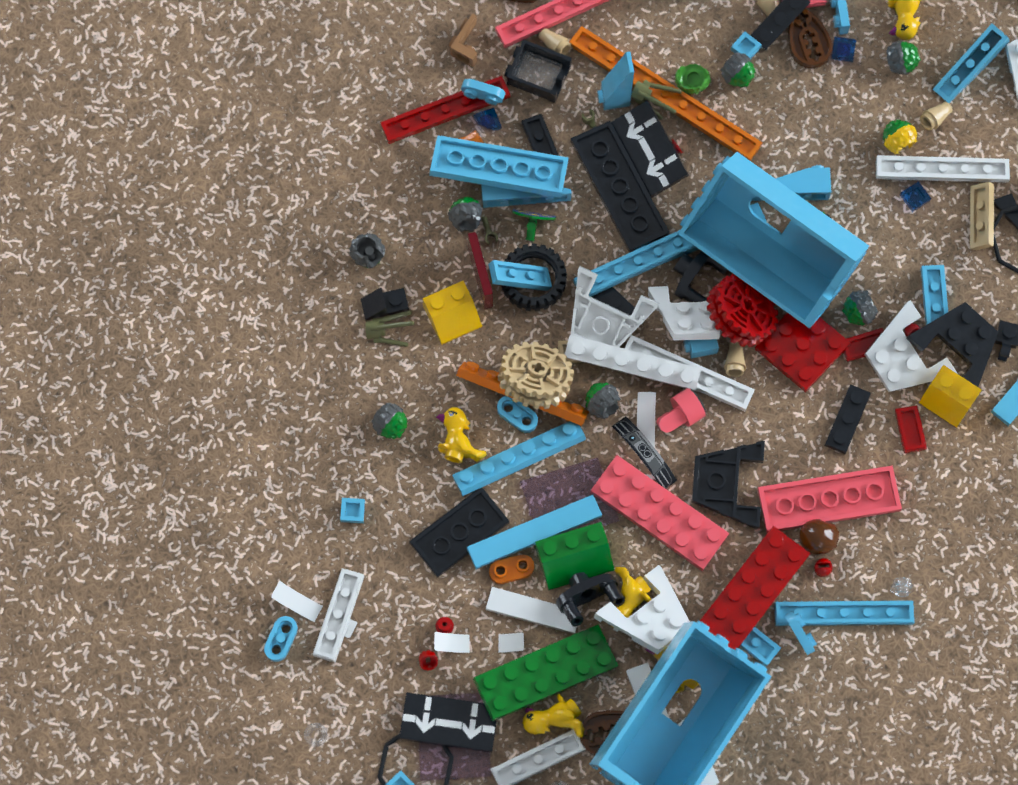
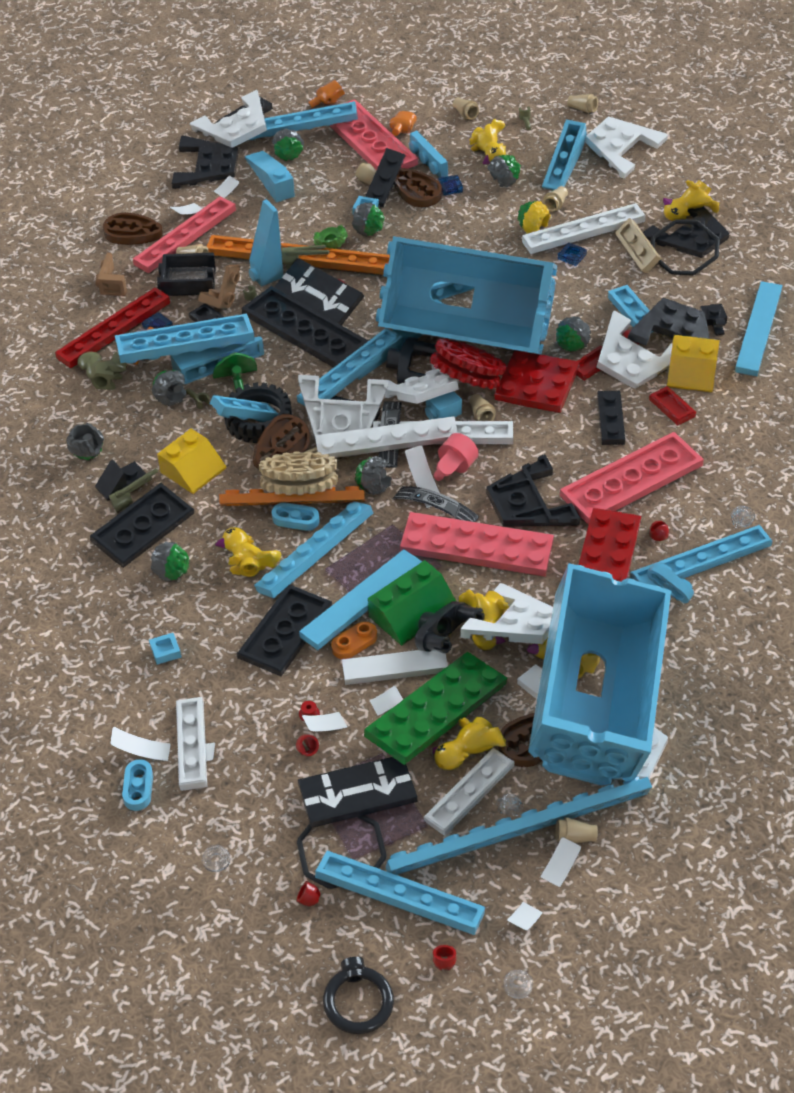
camera: 20 degrees left, 25 degrees down
(383, 364) = (141, 525): none -> black tile
(411, 161) = (101, 371): none -> olive animal
(476, 89) = (142, 296): medium azure plate -> none
(480, 270) = (204, 418): dark red tile -> none
(536, 313) = (275, 433): none -> reddish brown piece
(554, 117) = (226, 296): none -> medium nougat bracket
(643, 344) = (390, 416): none -> sticker
(819, 536) = (643, 503): reddish brown hair -> none

